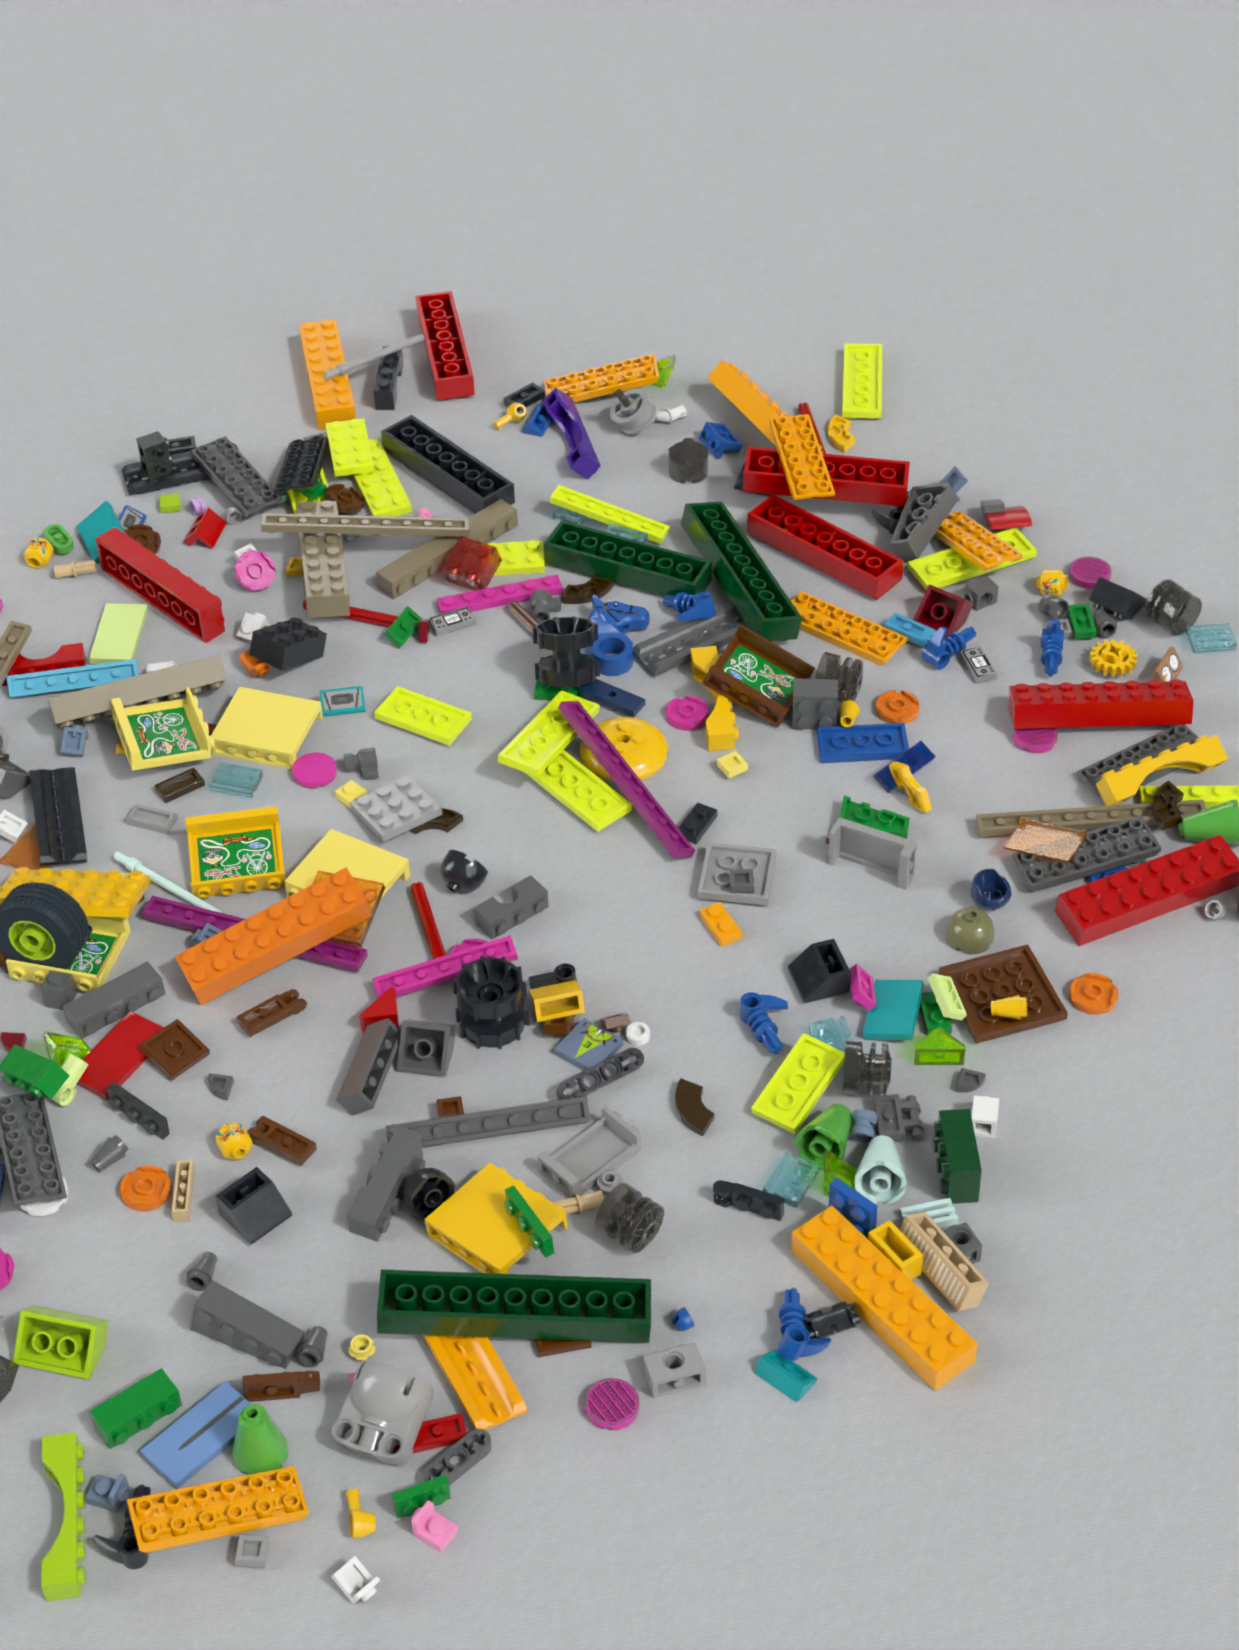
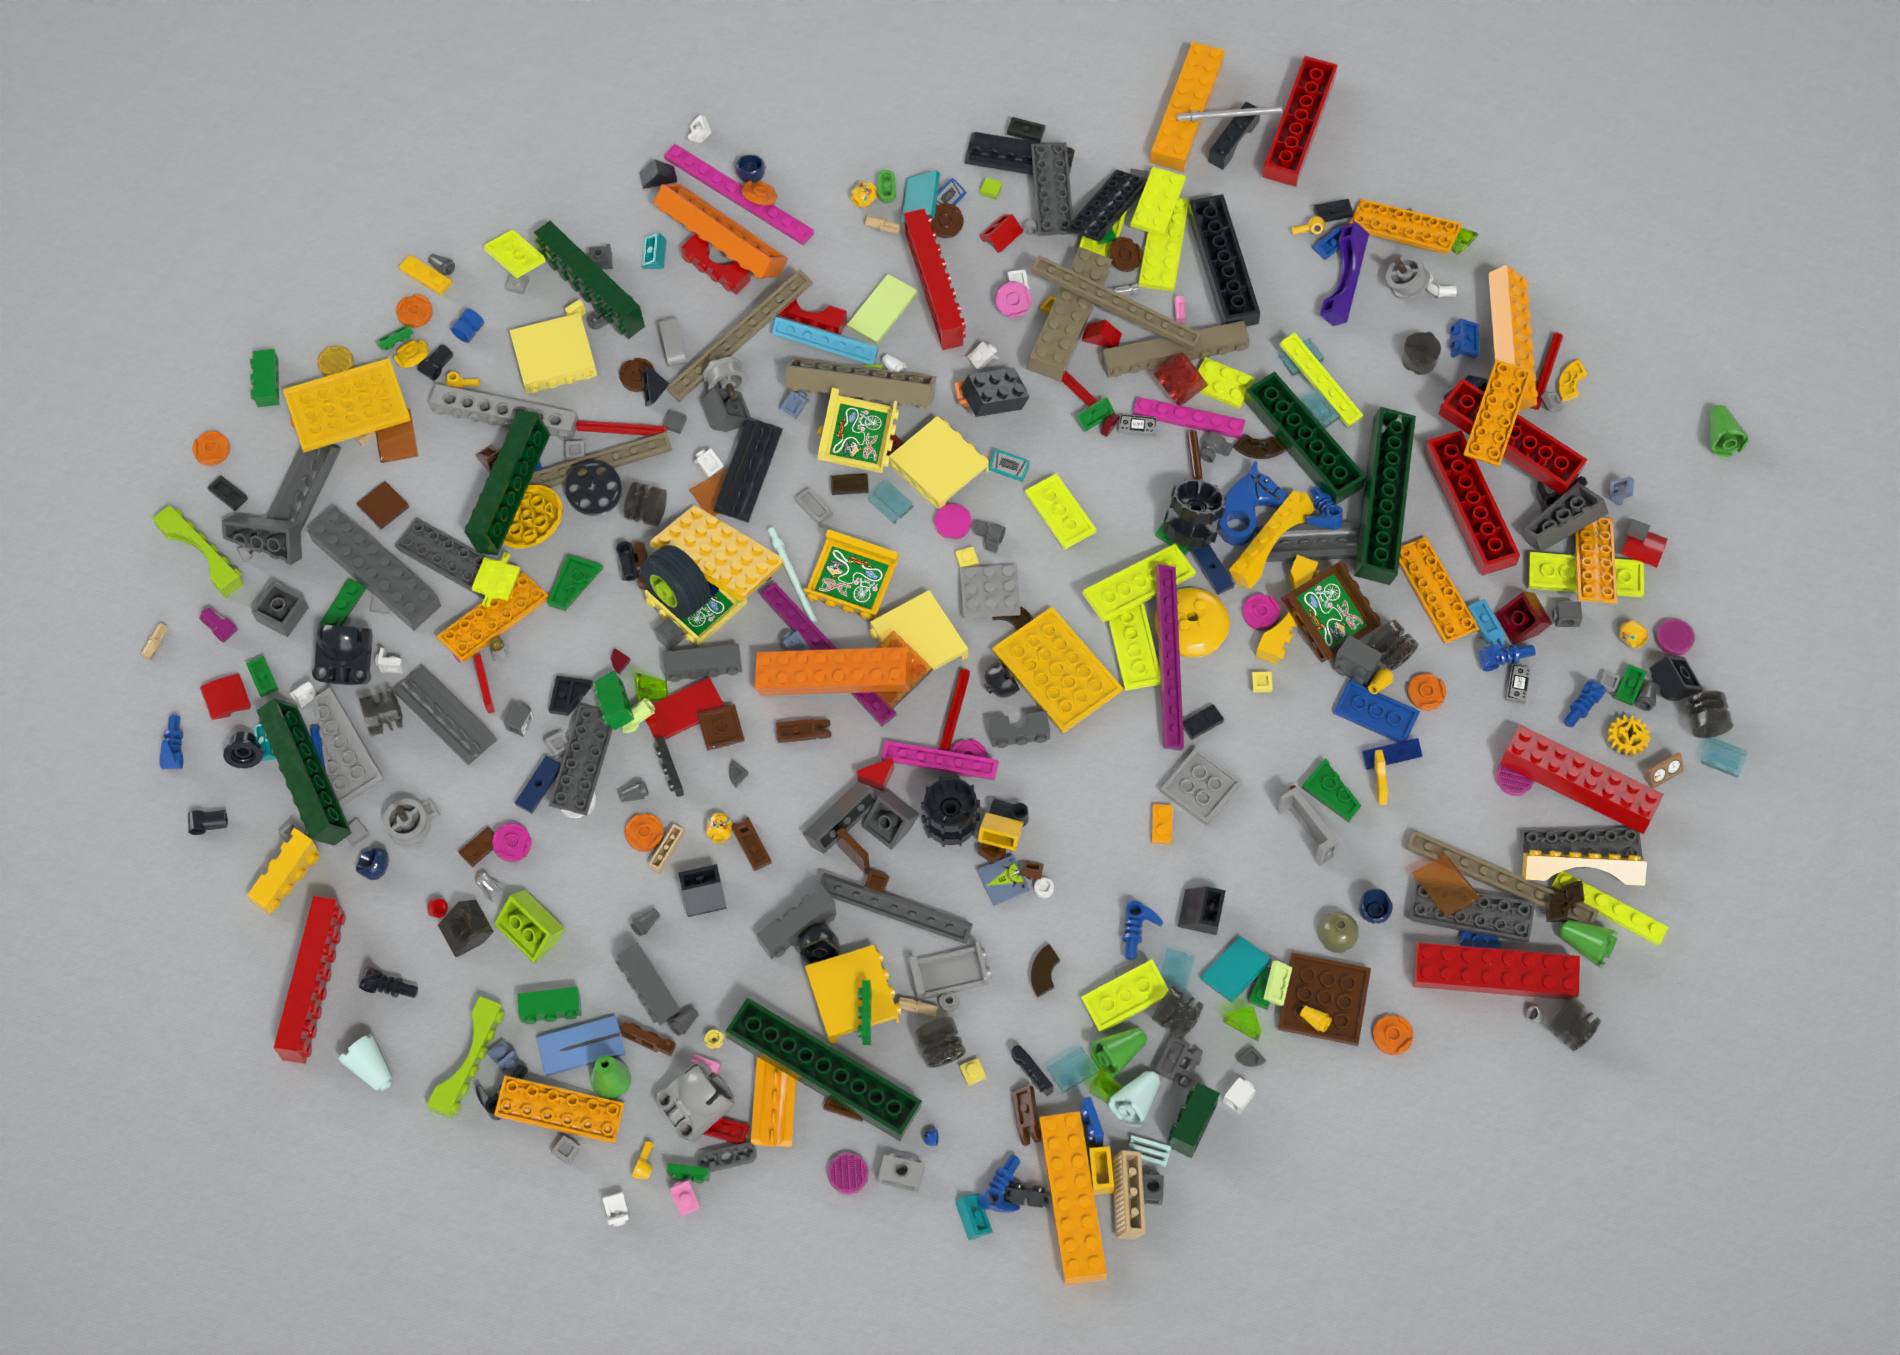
camera: 30 degrees right, 20 degrees up
(154, 455) = (997, 141): pearl dark grey brick -> none
(197, 506) = (1009, 203): lavender plate -> none
(363, 565) = (1102, 334): none -> red slope
(405, 1087) = (853, 850): none -> reddish brown tile
(517, 841) = (1057, 670): none -> yellow plate
(599, 1074) = (994, 913): black beam -> none
(649, 672) = (1250, 564): none -> yellow arch
(683, 1236) = (972, 1072): none -> light yellow plate
(741, 881) = (1196, 797): dark grey tile -> none
(772, 1242) = (1026, 1114): none -> reddish brown hinge
(836, 450) = (1552, 401): none -> light grey tile
(862, 381) = (1626, 332): neon yellow plate -> none
(862, 987) = (1224, 939): dark pink plate -> none
(863, 1125) = (1148, 1056): sand blue wheel -> none
(1010, 410) = (1725, 432): none -> bright green cone
(1053, 606) = (1616, 660): dark grey wheel -> none

